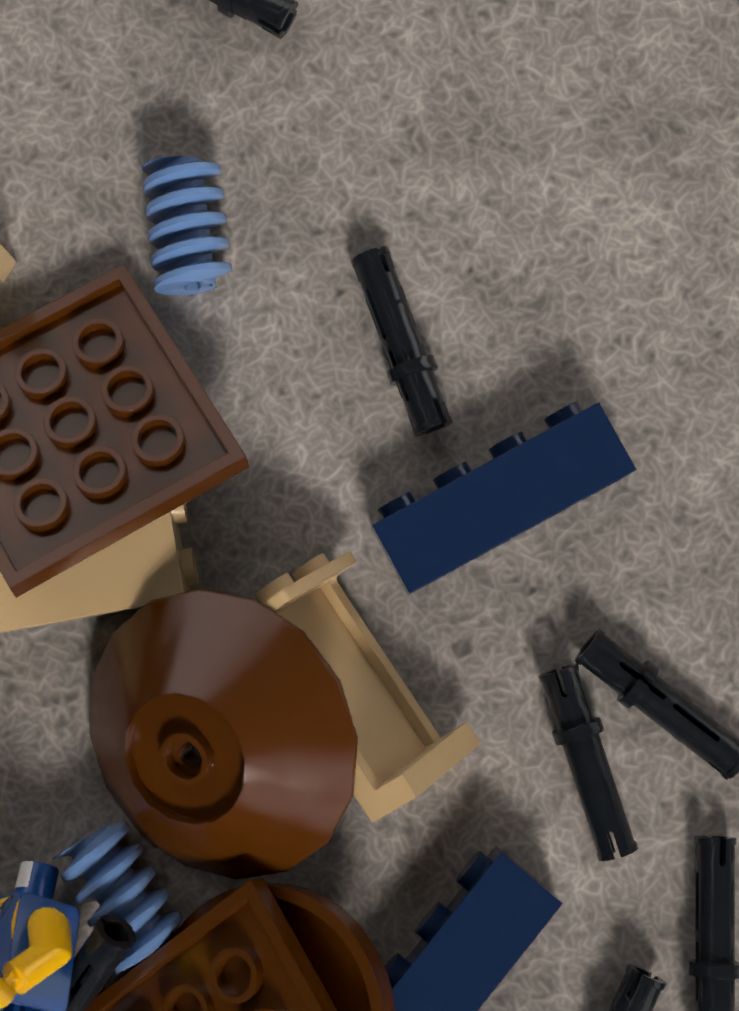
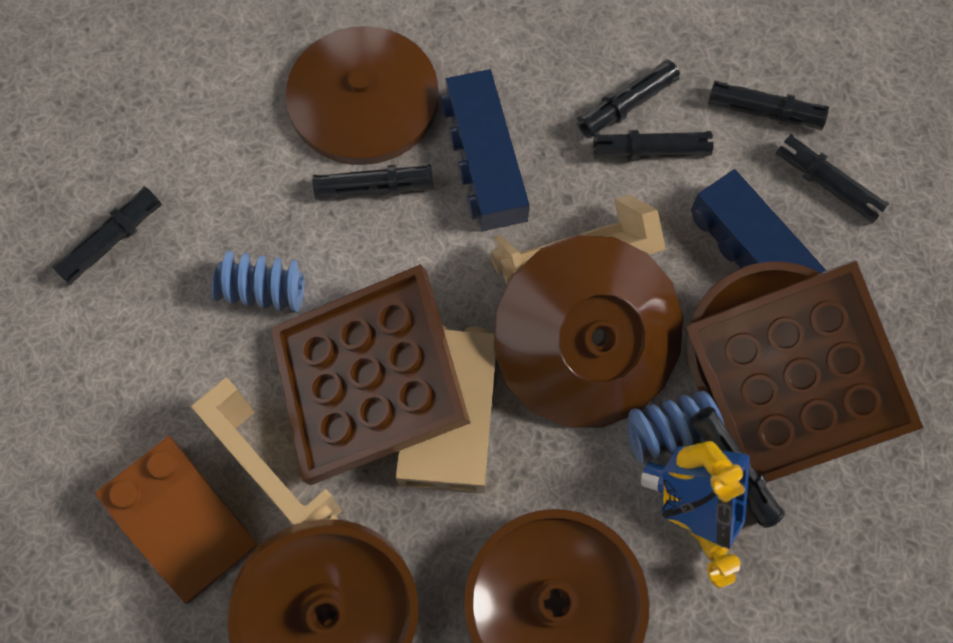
camera: 75 degrees left, 15 degrees down
(555, 277) = (362, 95): none -> reddish brown dish

